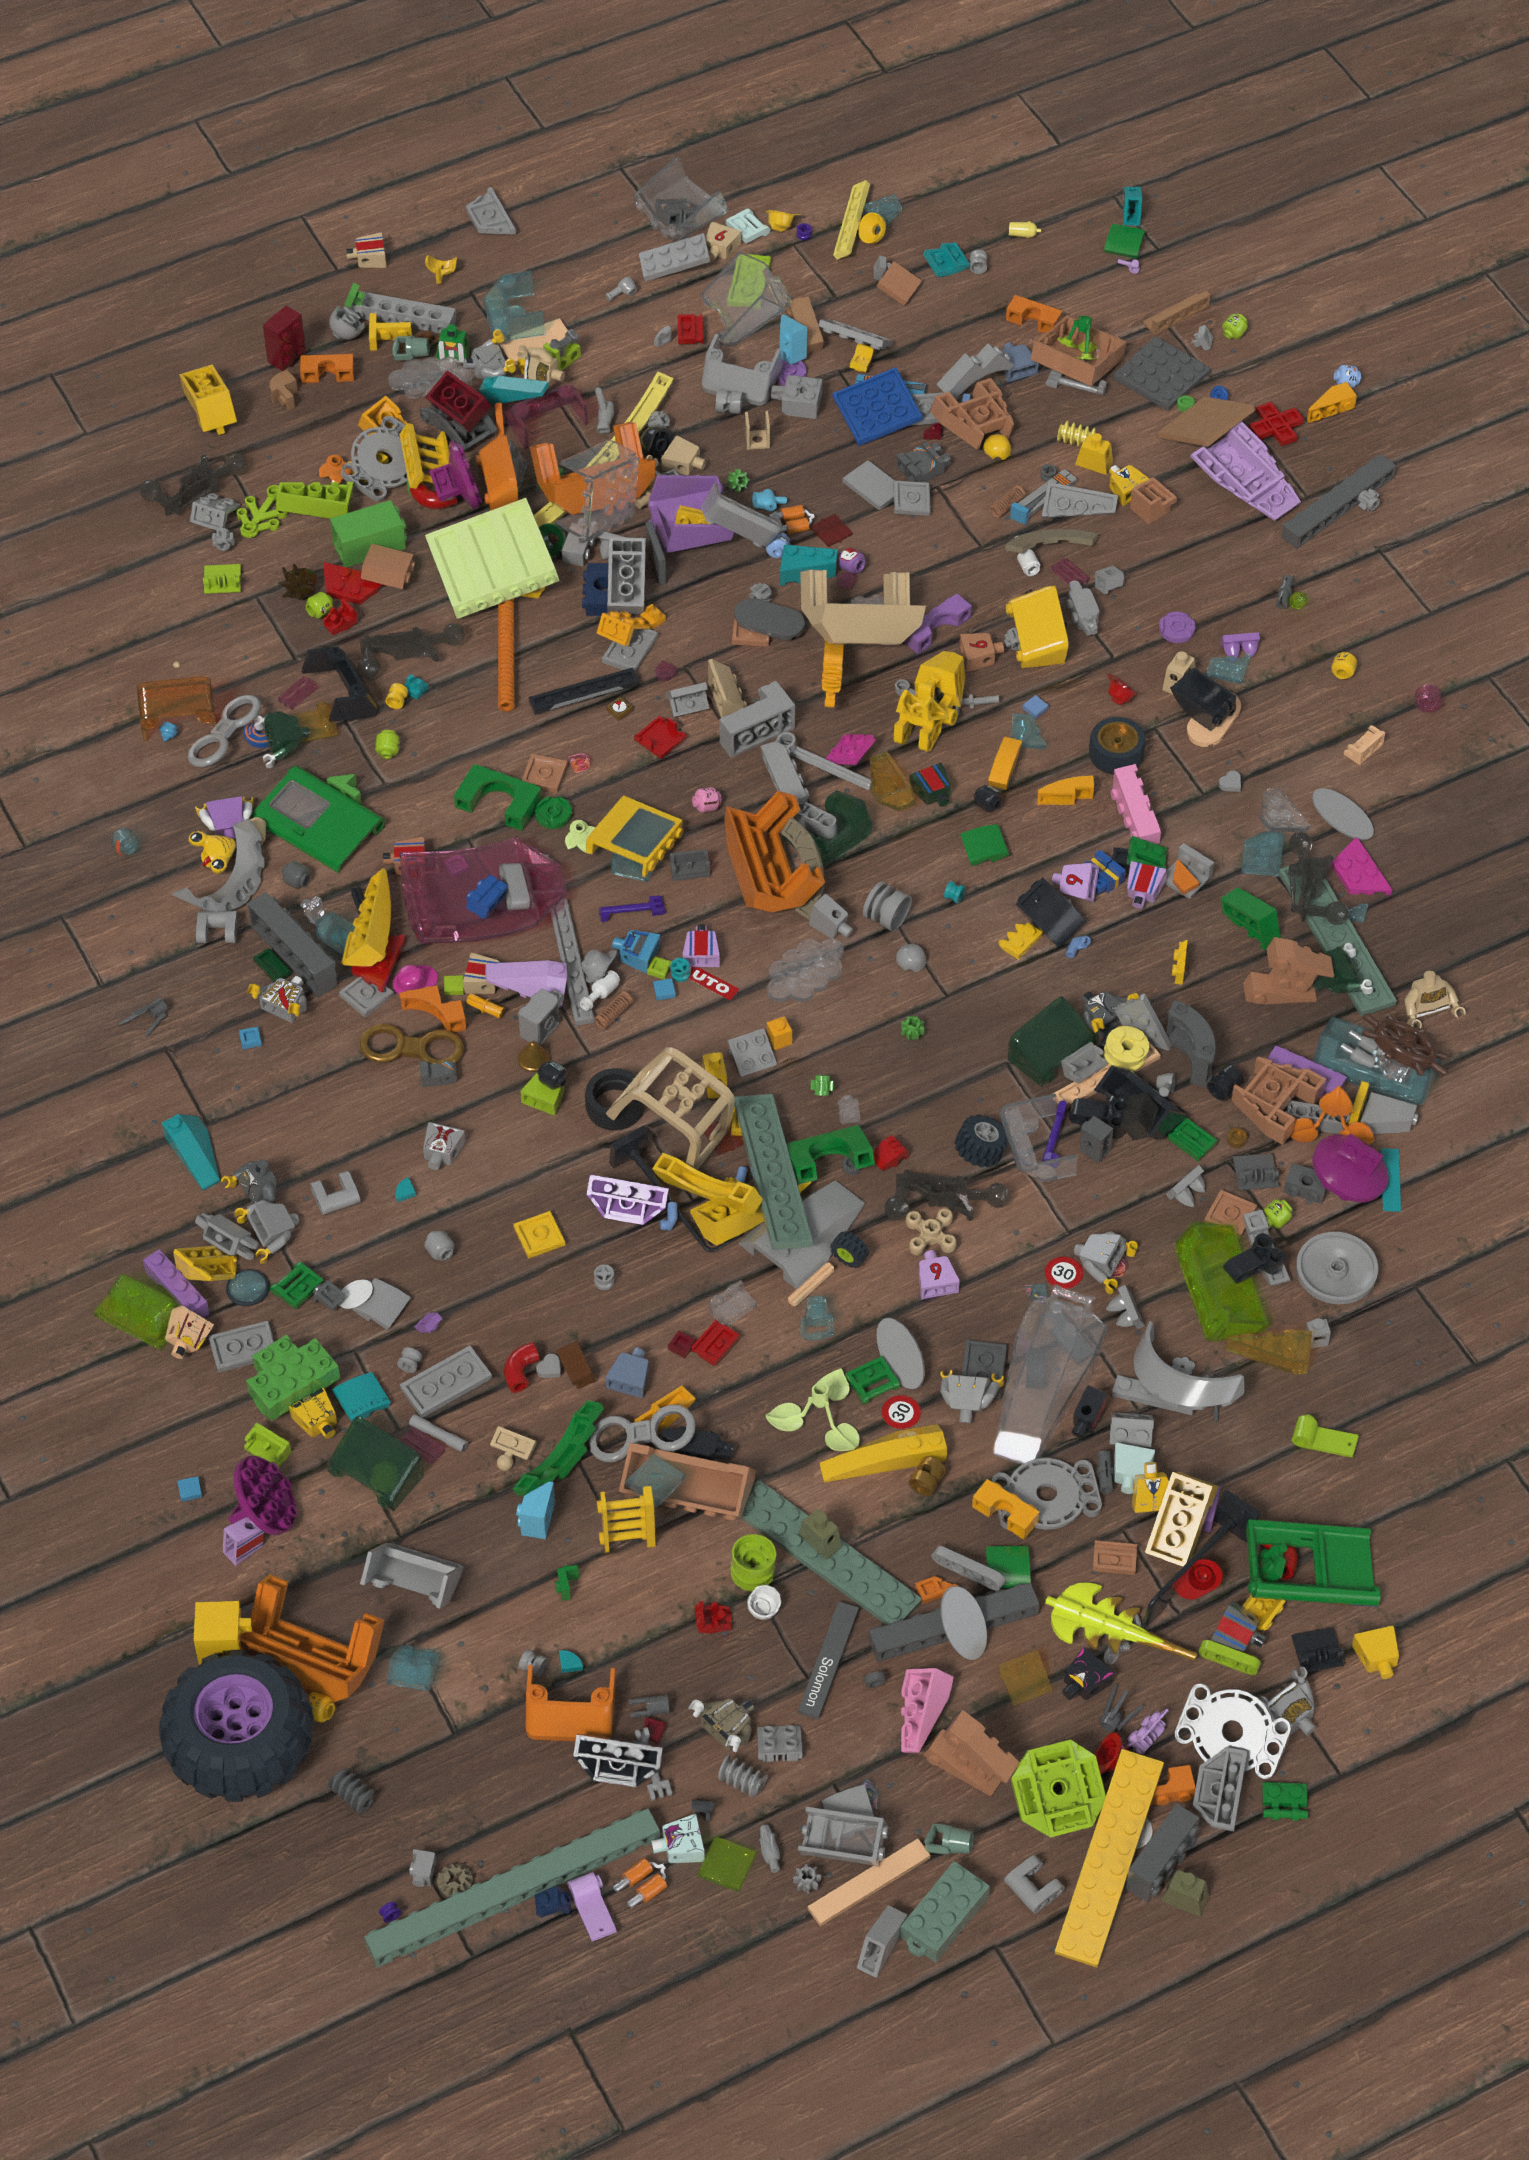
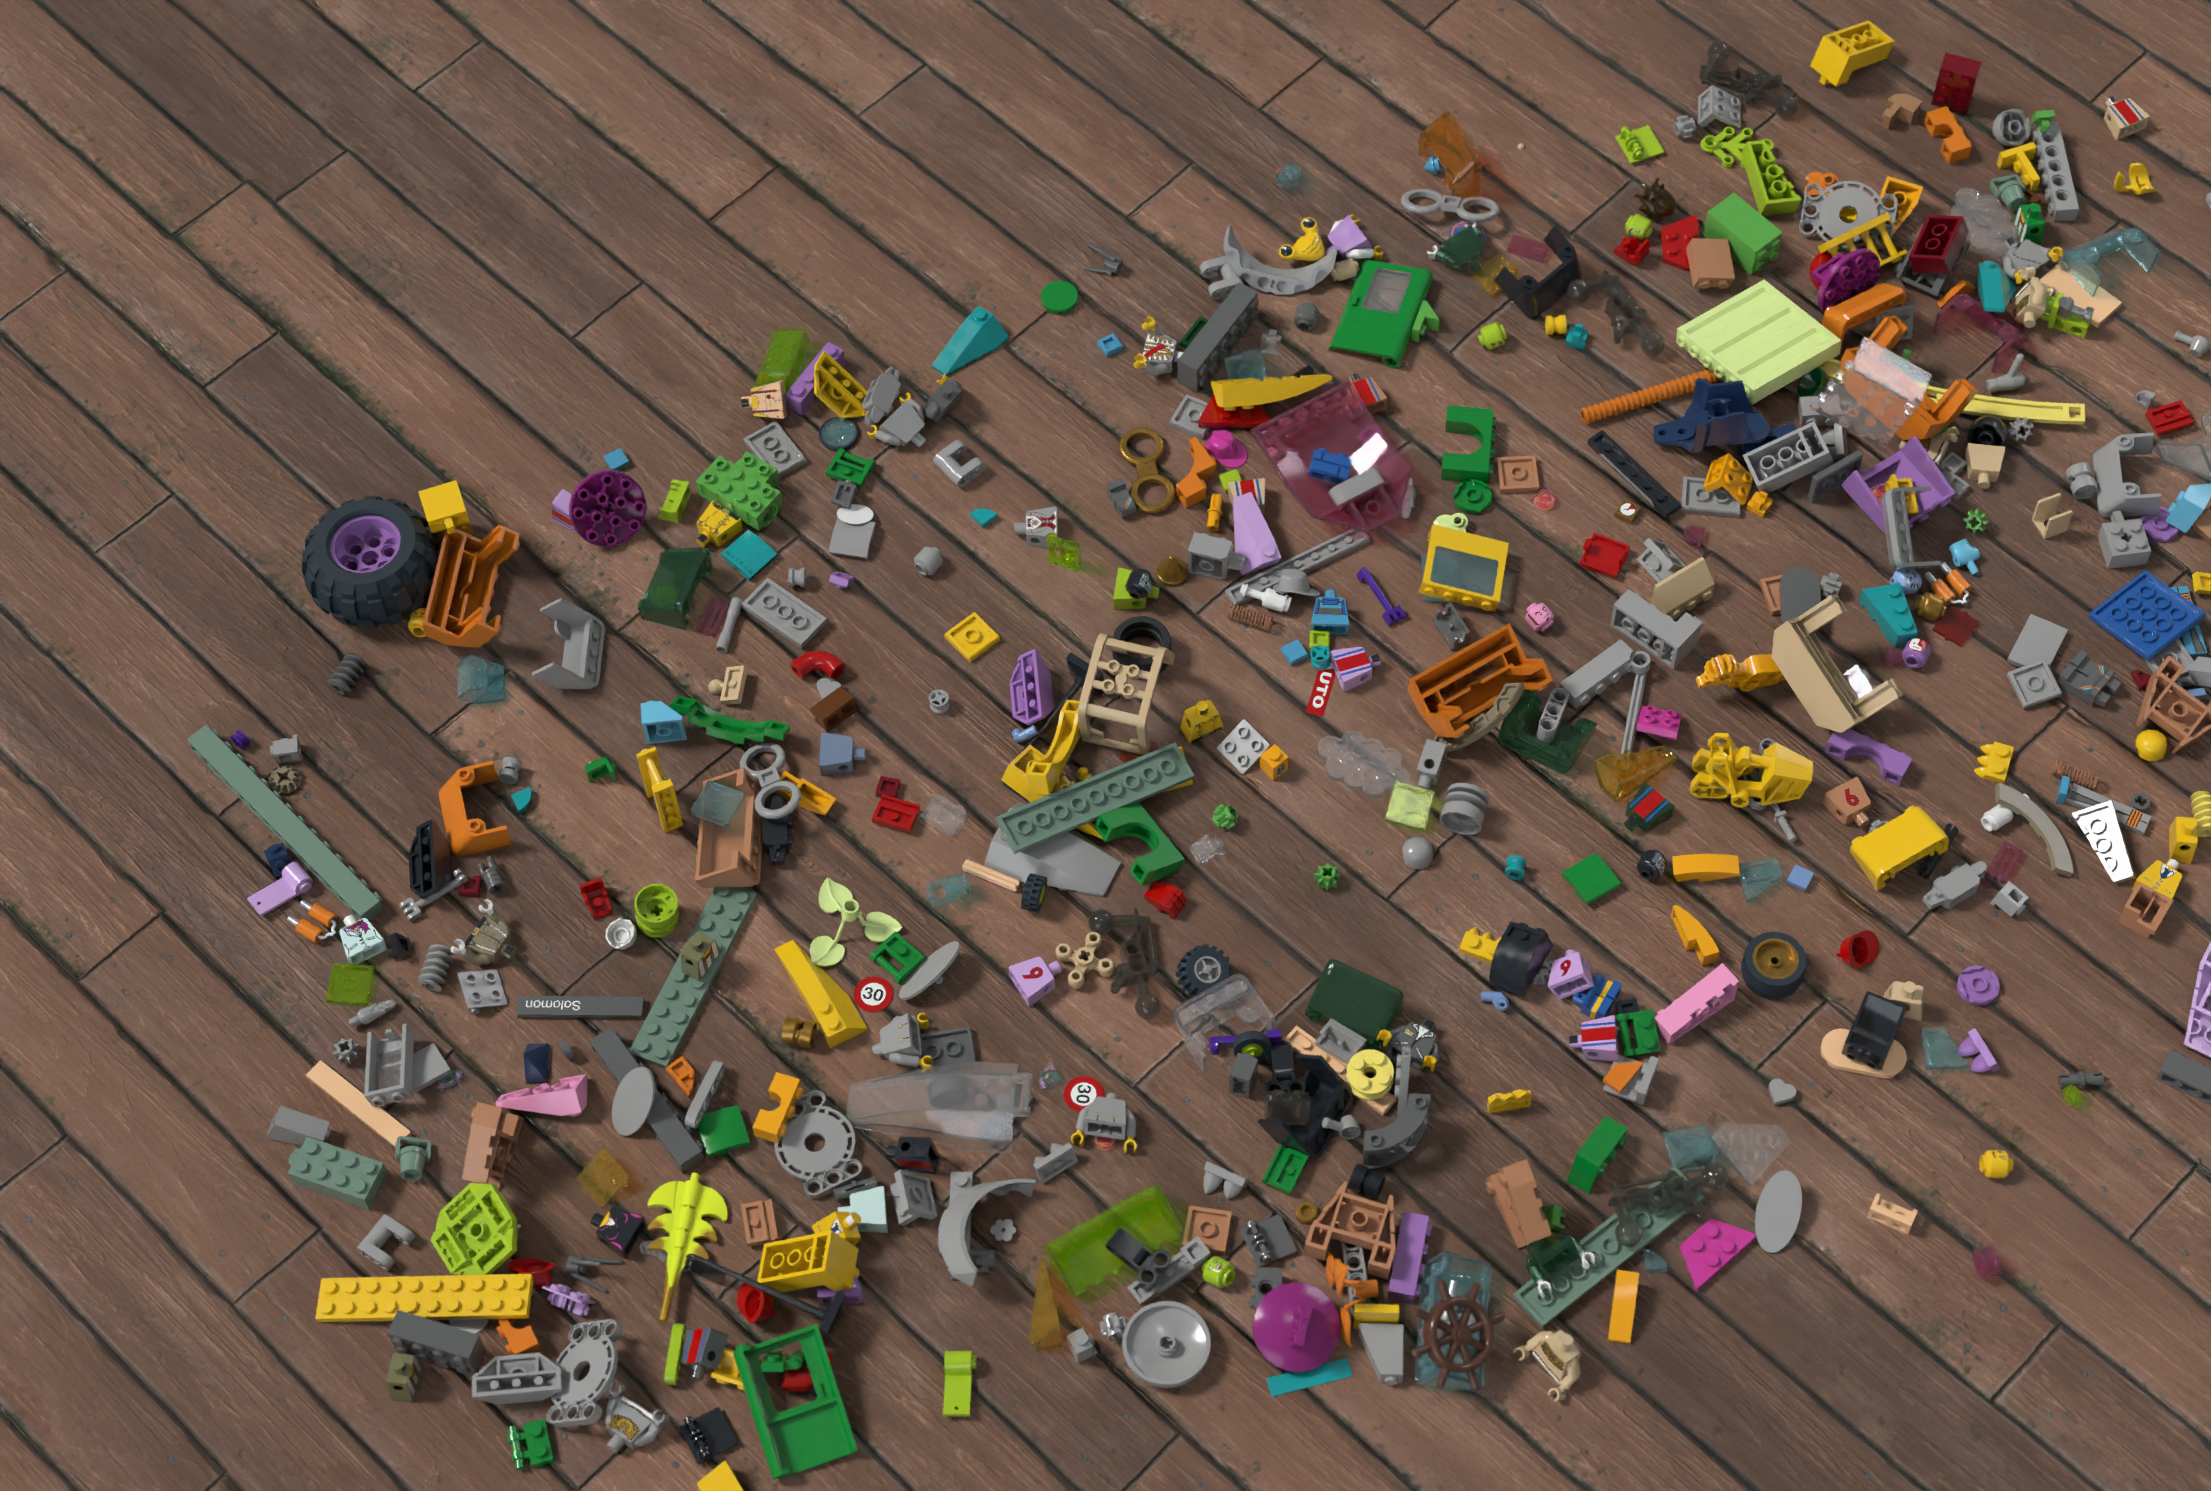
camera: 75 degrees right, 5 degrees up
(172, 1063) = (1059, 297): none -> green tile
(488, 1127) = (1069, 552): none -> clear neon green plate
(561, 615) = (1715, 417): none -> dark blue piece
(809, 536) = (1930, 606): none -> pearl gold head
(863, 948) = (1409, 805): none -> clear neon green tile
(876, 1712) = (536, 1063): none -> dark blue slope
(973, 547) = (1995, 762): none -> yellow plate
(1068, 1127) = (1252, 1043): none -> black wheel
(1305, 1304) = (1113, 1326): none -> light grey gear
(1394, 942) = (1623, 1306): none -> light orange slope

